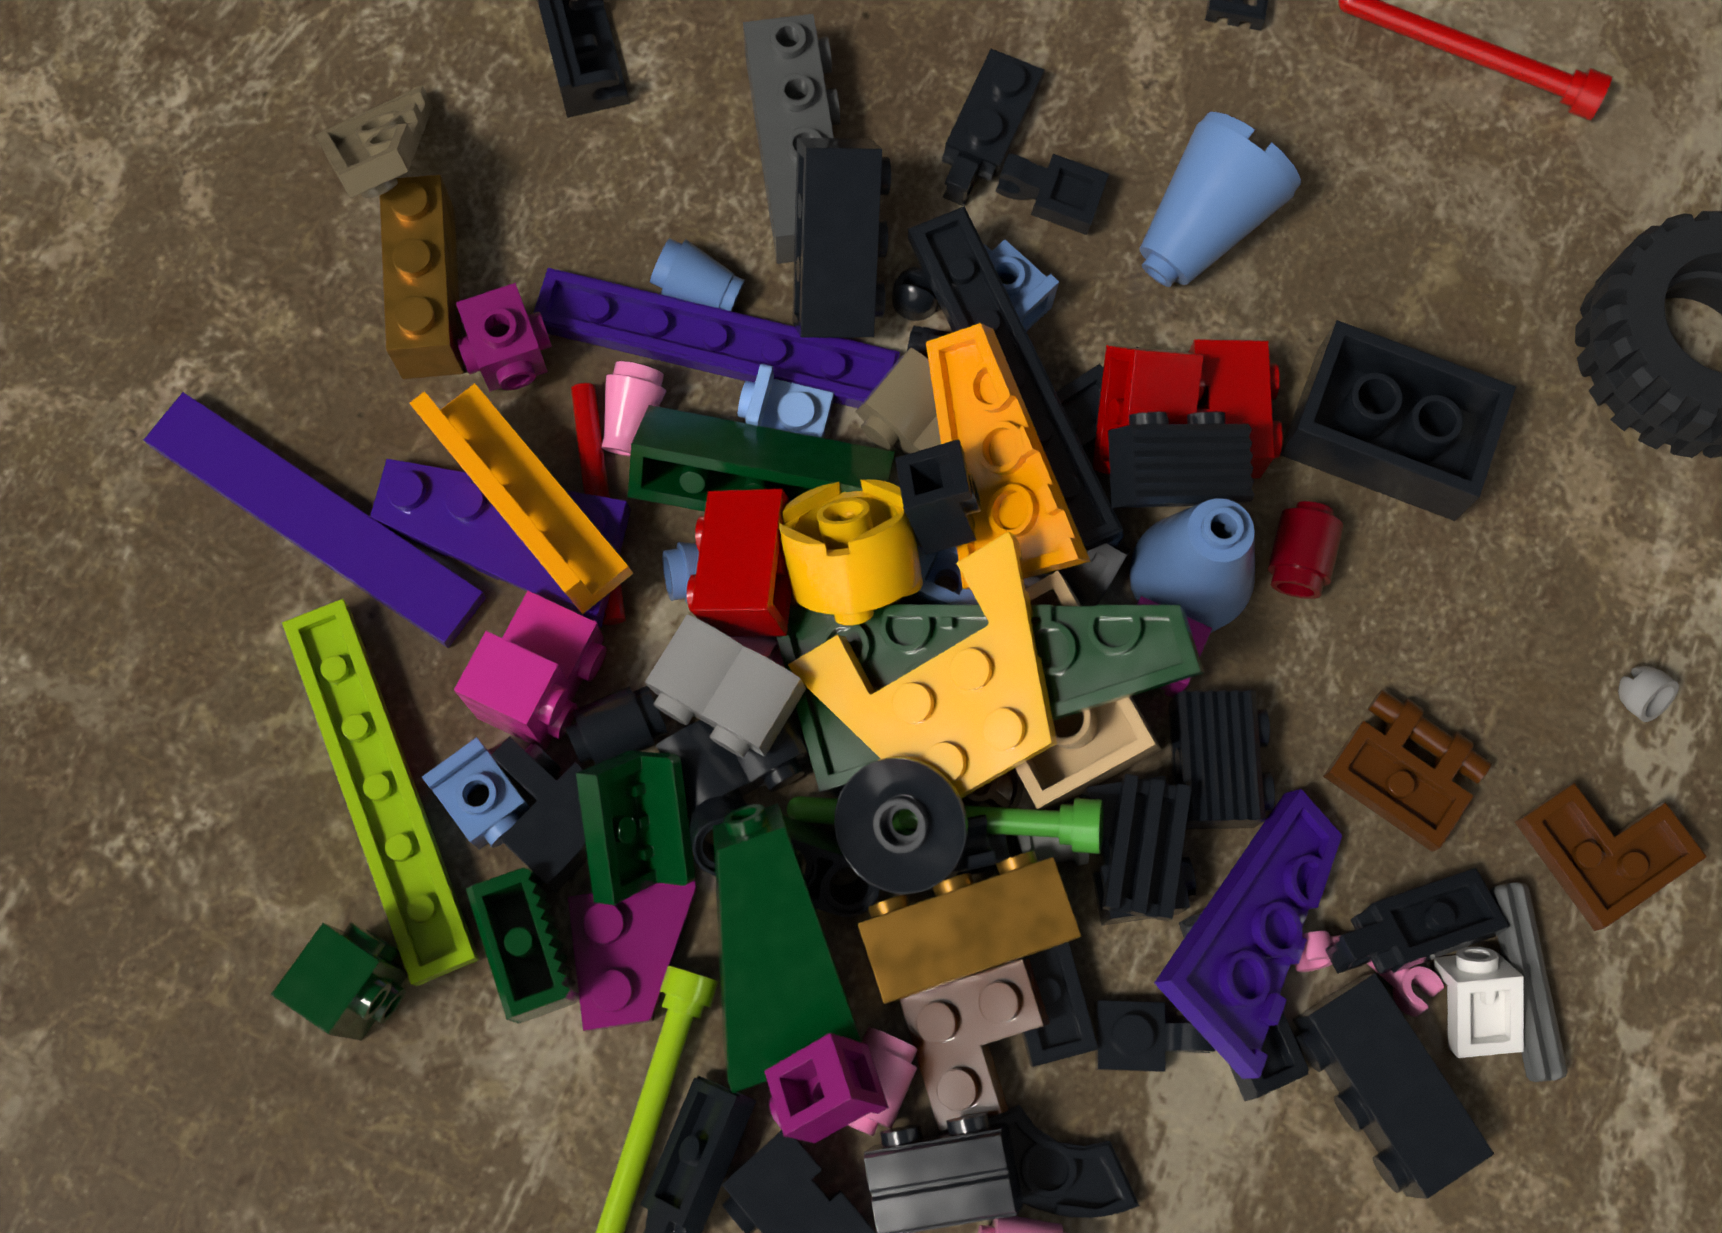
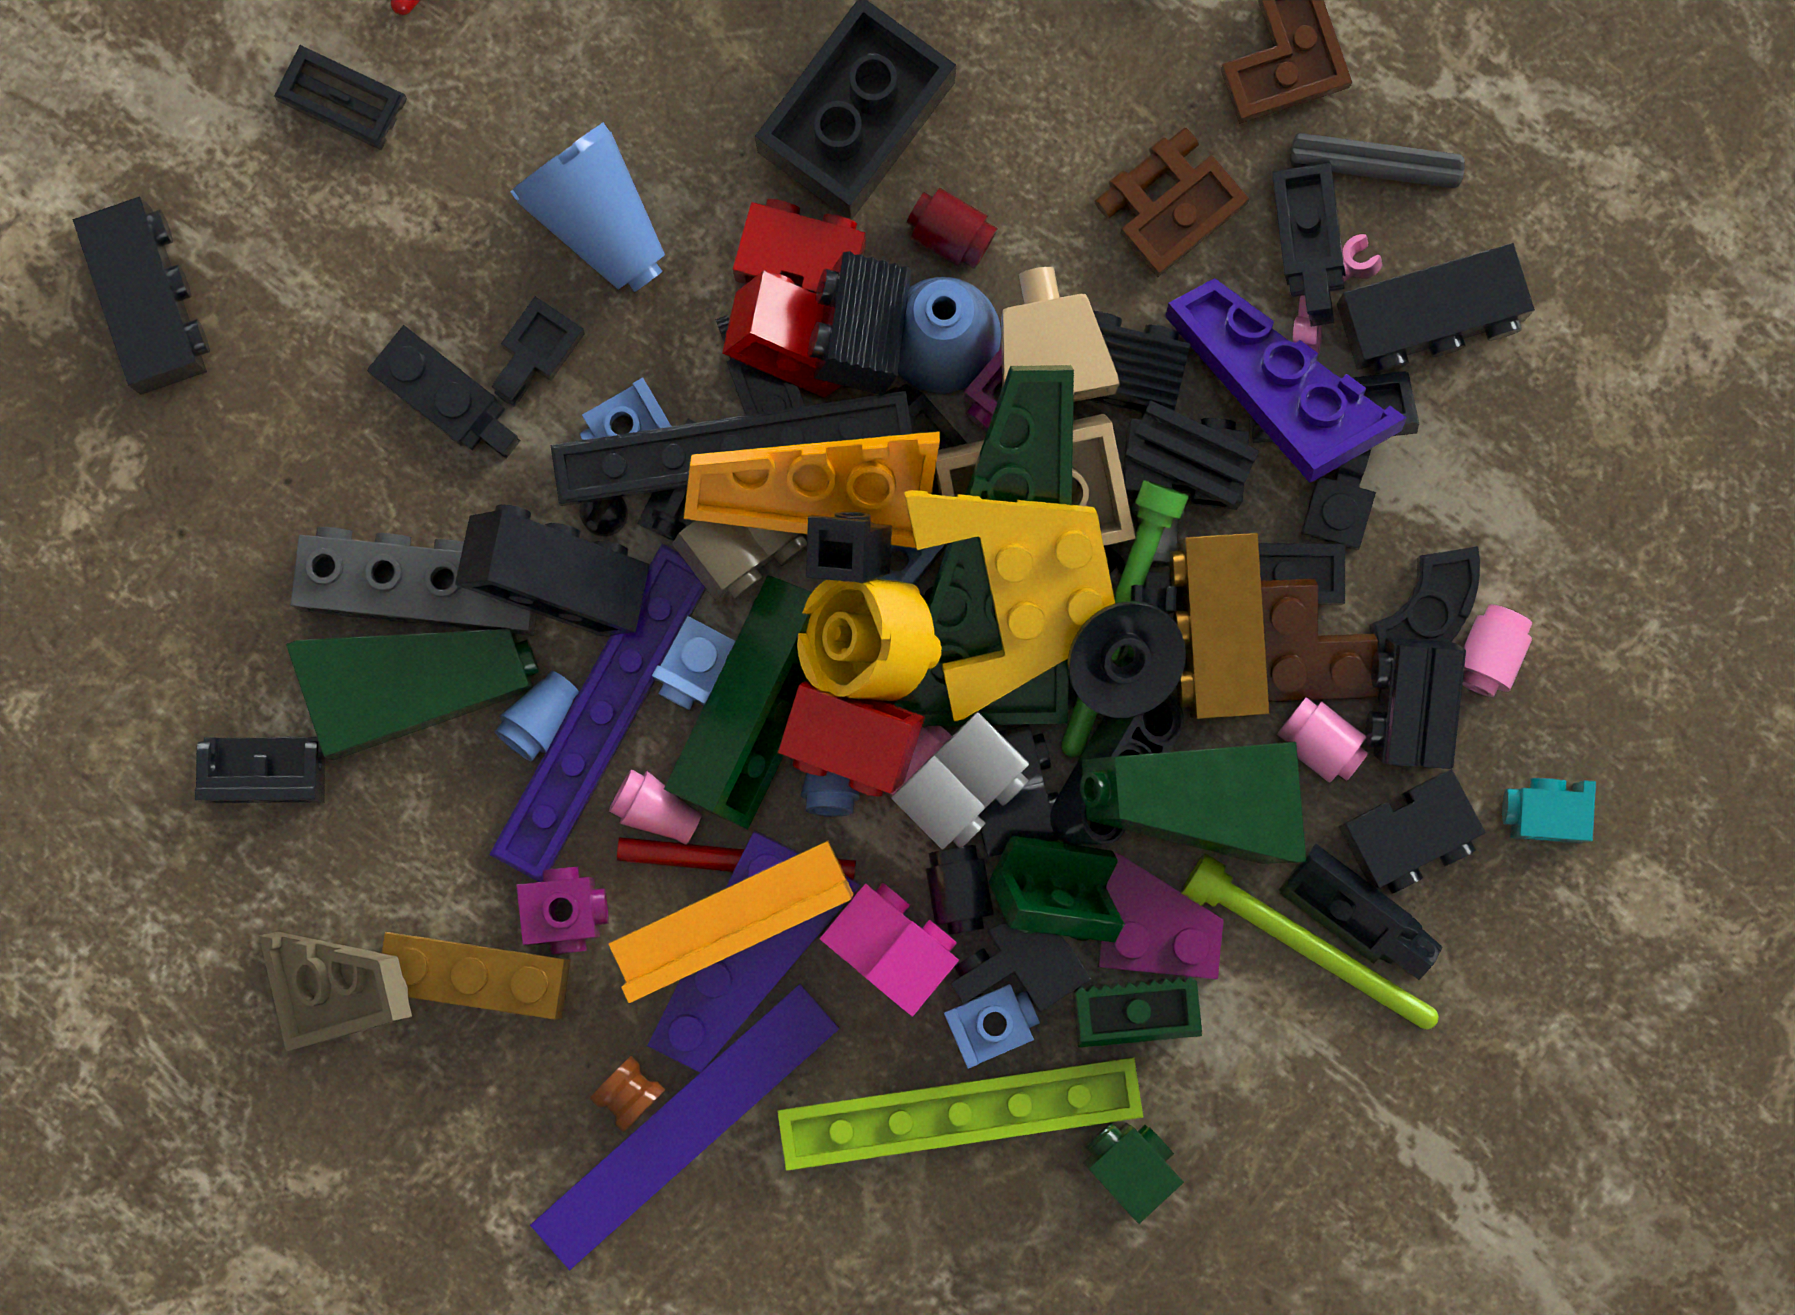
camera: 70 degrees left, 10 degrees up
(332, 450) = (627, 1094): none -> dark orange wheel
(692, 143) = (400, 684): none -> dark green slope
(824, 1088) = (1312, 768): magenta brick -> none
(1236, 665) = (1057, 333): none -> tan torso
(1482, 1003) = (1386, 206): white bracket -> none

